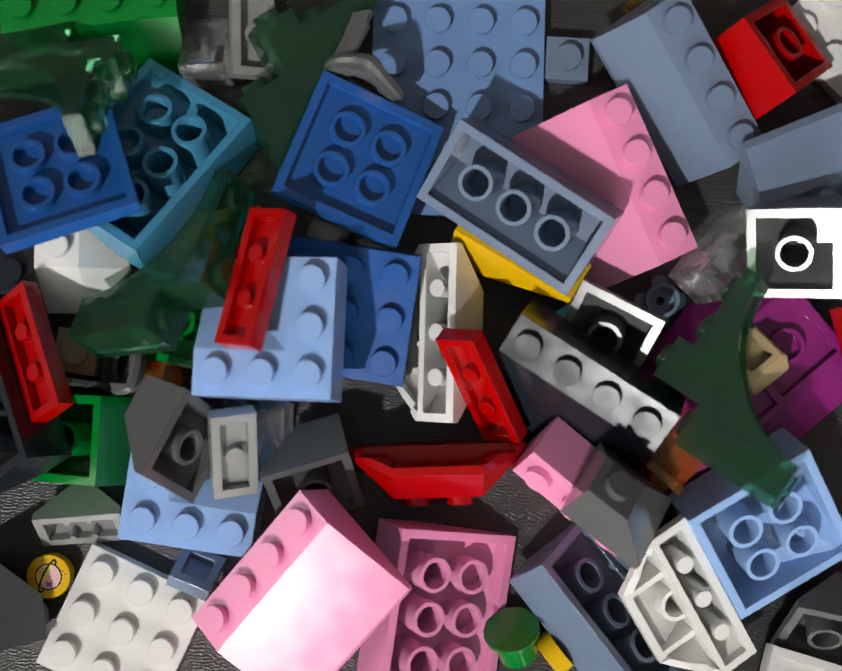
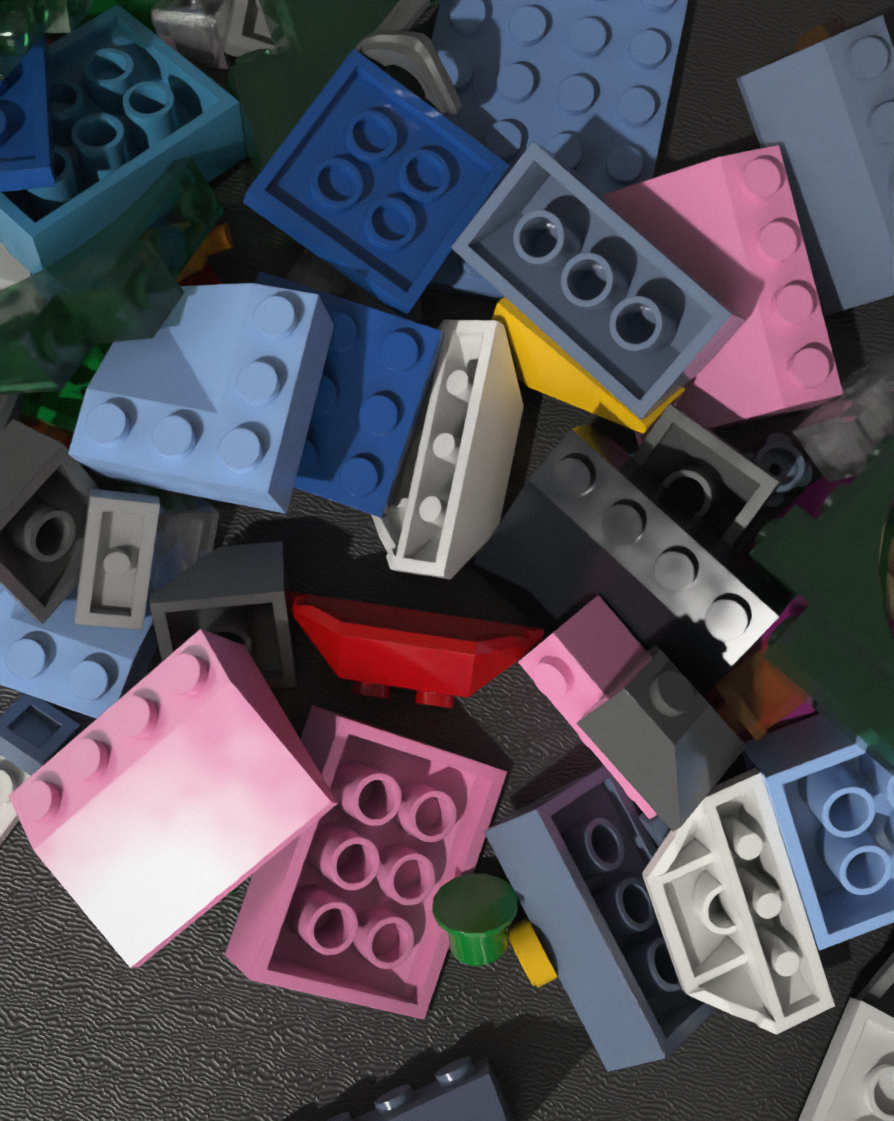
camera: 15 degrees right, 5 degrees down
(255, 278) = (194, 303): red plate -> none
(481, 384) = (496, 528): red plate -> none
(566, 60) = (698, 114): sand blue plate -> none

